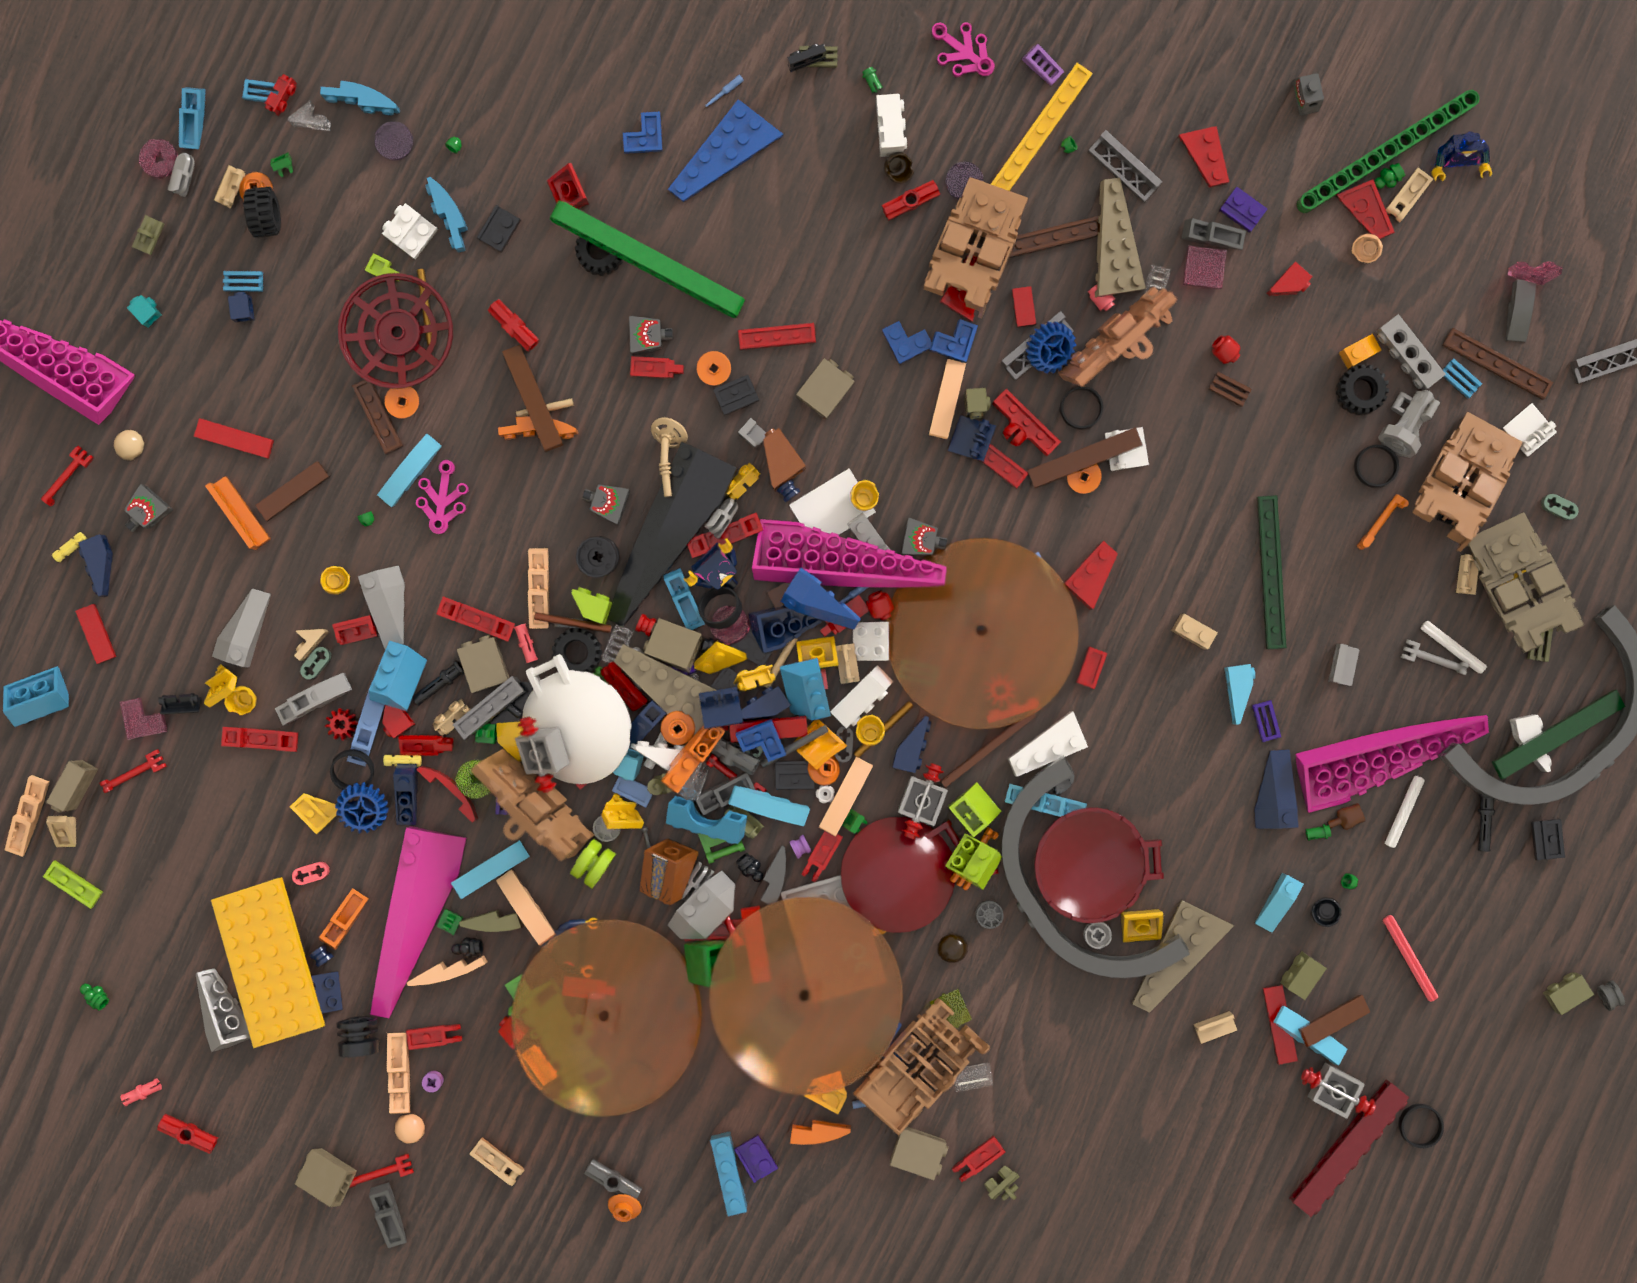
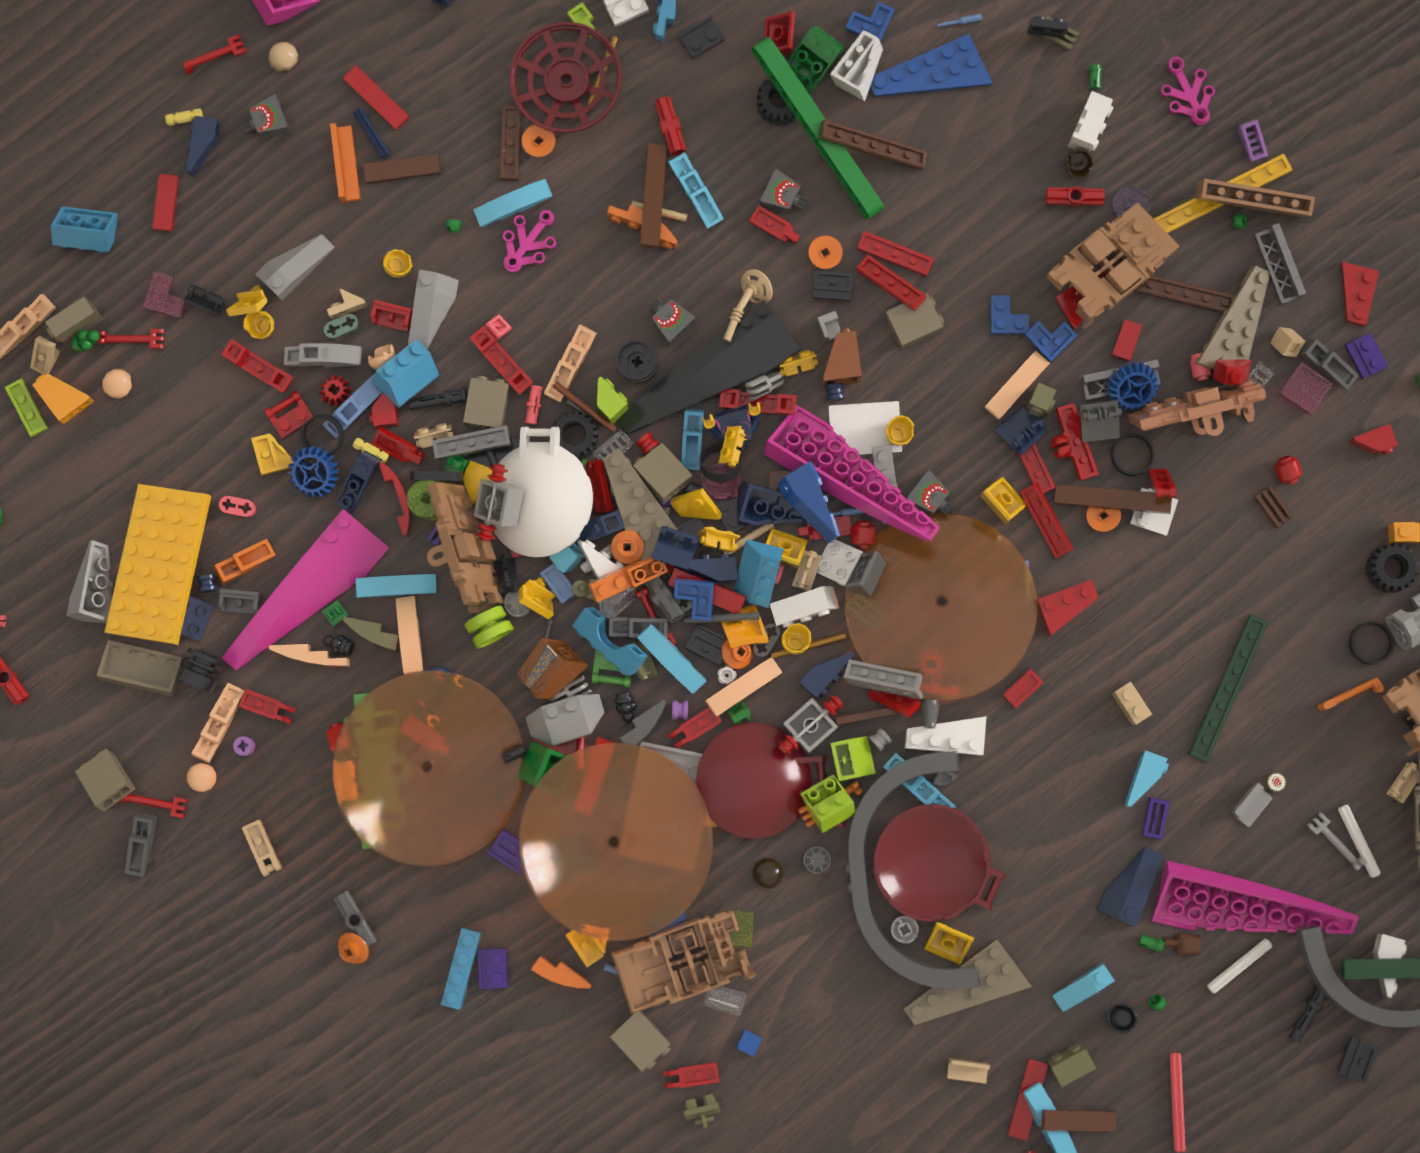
camera: 30 degrees right, 5 degrees down
(91, 797) = (83, 340): none -> green piece
(99, 859) = (61, 398): none -> light orange slope
(142, 820) = (117, 383): none -> light nougat hair
(247, 473) = (371, 133): none -> dark blue axle
(302, 1062) = (139, 668): none -> dark tan slope
(317, 770) = (293, 419): none -> red plate
(358, 956) = (239, 601): none -> dark grey hinge
(367, 671) = (381, 356): none -> light nougat hair
(456, 590) = (498, 327): none -> coral tile
(473, 753) = (436, 475): none -> black beam
(567, 372) = (695, 190): none -> medium azure slope
(583, 808) = (506, 574): none -> black hinge
(611, 195) = (815, 57): none -> green slope
(654, 181) = (858, 65): none -> white wedge
(675, 964) = (513, 754): none -> black pin
(705, 248) = (872, 144): none -> reddish brown tile
(712, 1050) = (507, 851): none -> dark purple plate
(721, 581) = (733, 438): none -> yellow hinge
(787, 365) = (891, 282): none -> red tile
(902, 640) = (866, 573): none -> dark grey slope
(966, 726) = (884, 679): none -> light grey fence
(984, 739) = (904, 705): none -> red plate
(989, 508) = (1003, 500): none -> yellow slope
(990, 779) = (880, 739): none -> light grey wheel
(1013, 1105) = (749, 1043): none -> blue slope
(1022, 735) = (930, 712): none -> dark grey cone
(1035, 507) = (1046, 520): none -> red tile
(1038, 393) = (1100, 421): none -> dark grey hinge
(1072, 118) = (1255, 198): none -> medium nougat brick
(1121, 421) = (1162, 483): none -> red plate
(1132, 288) = (1232, 371): none -> red slope
(1167, 233) = (1287, 342): none -> tan panel
(1355, 633) = (1276, 782): none -> tile

